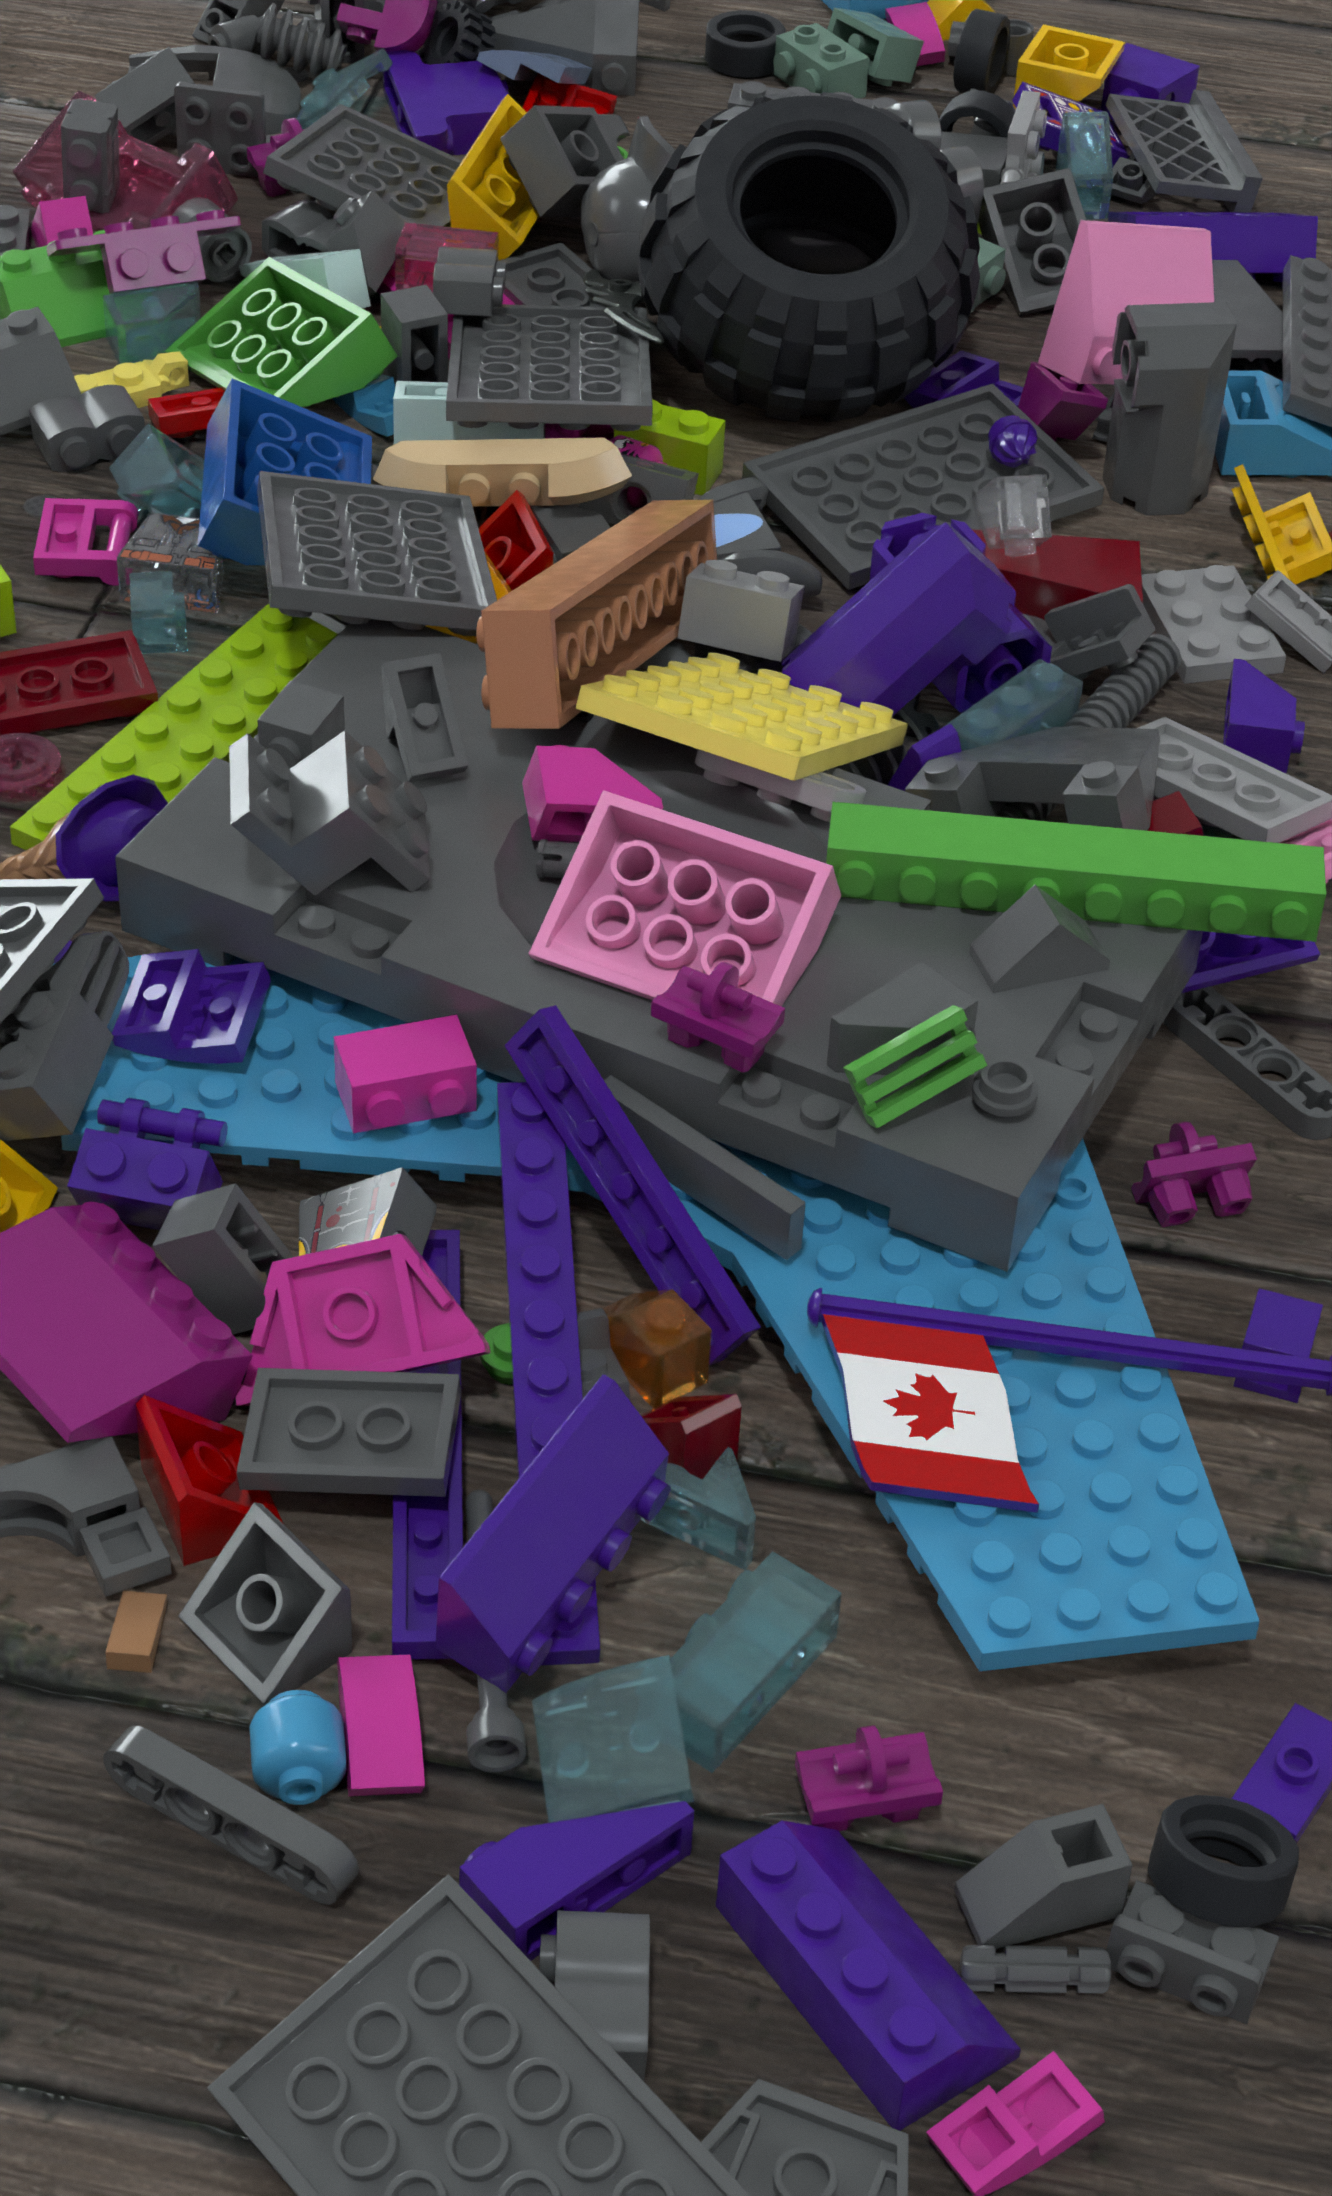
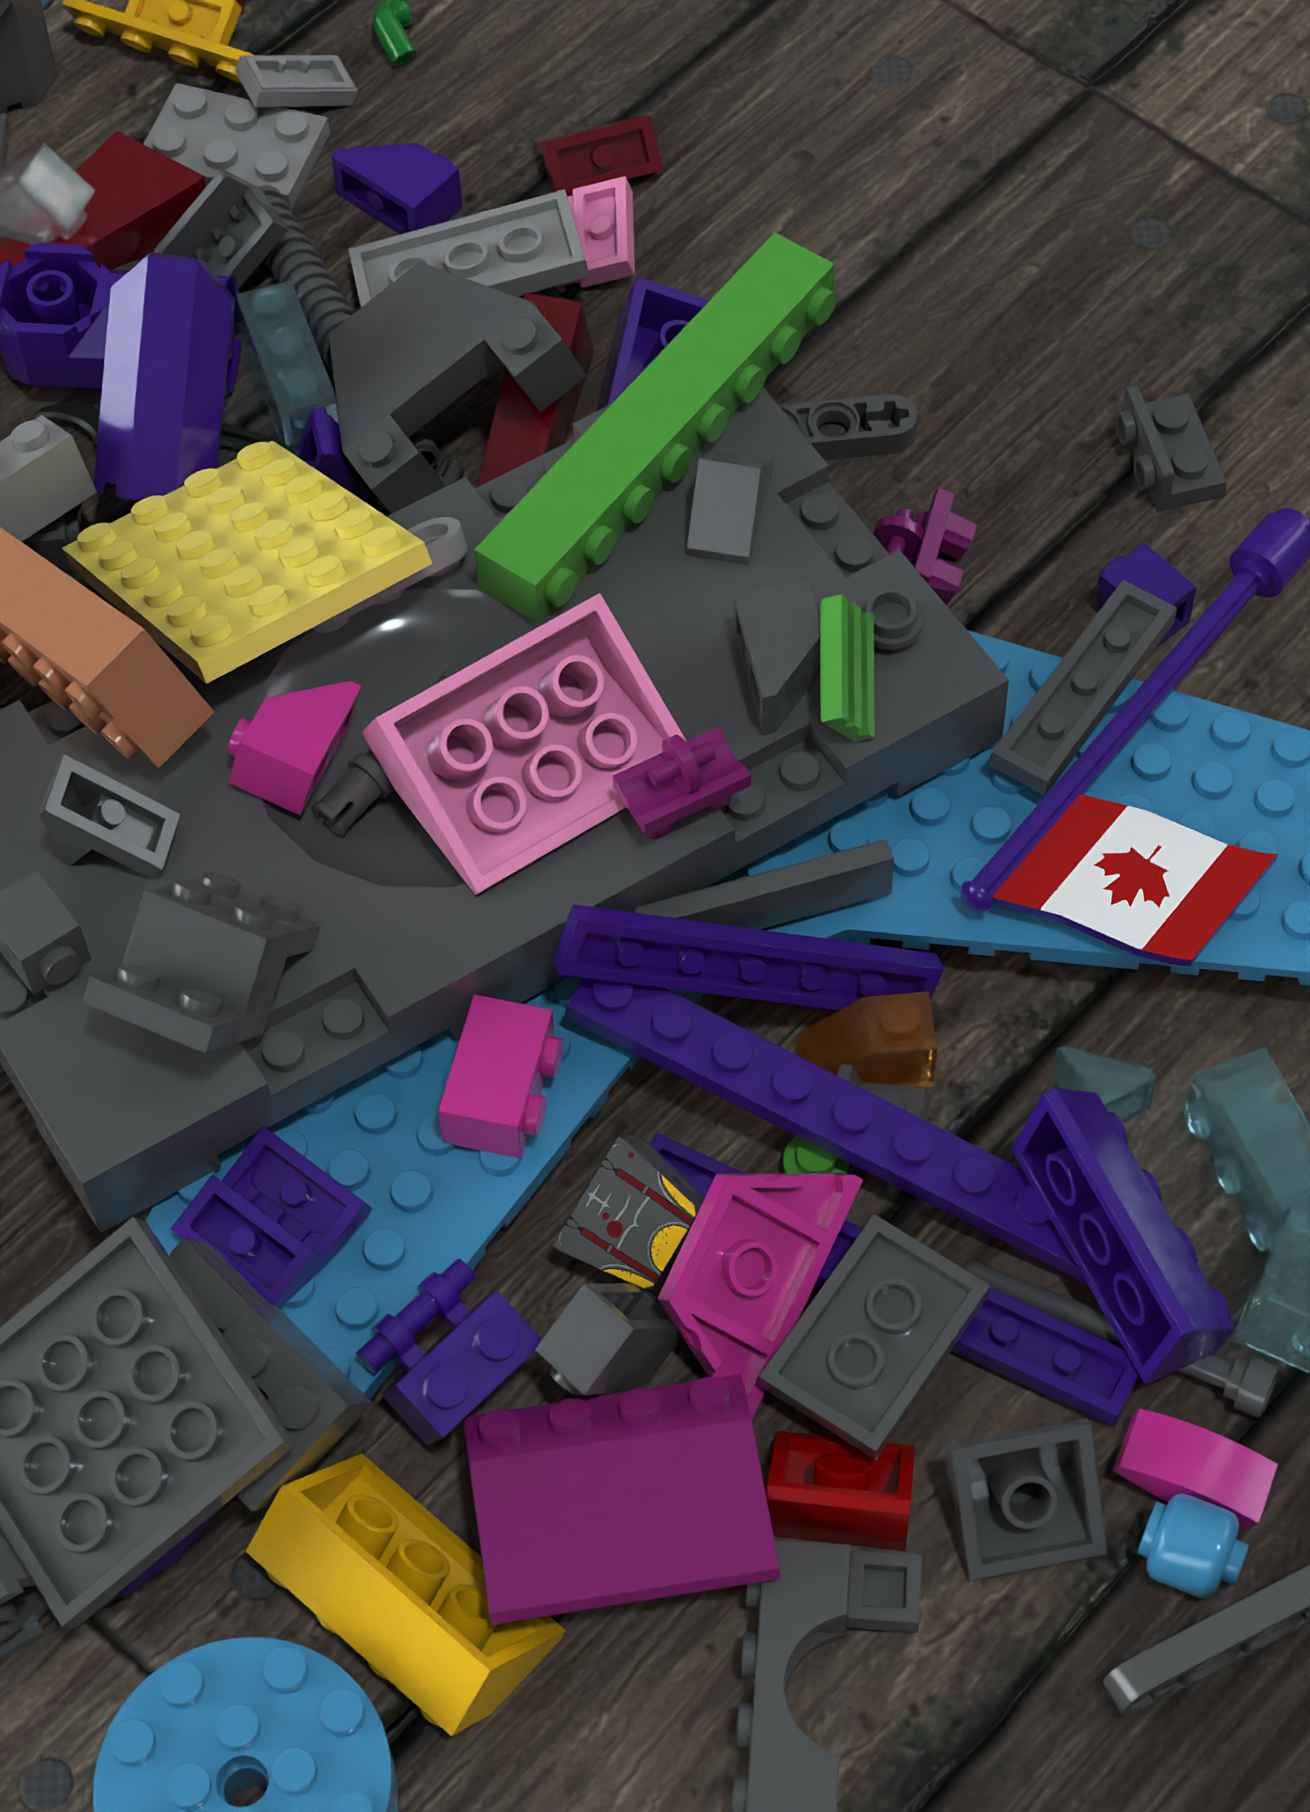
camera: 55 degrees left, 15 degrees up
(136, 1631) = (968, 1622): medium nougat piece -> none
(697, 1429) = (997, 1073): dark red slope -> none
(1101, 1293) = (1083, 687): none -> dark grey plate

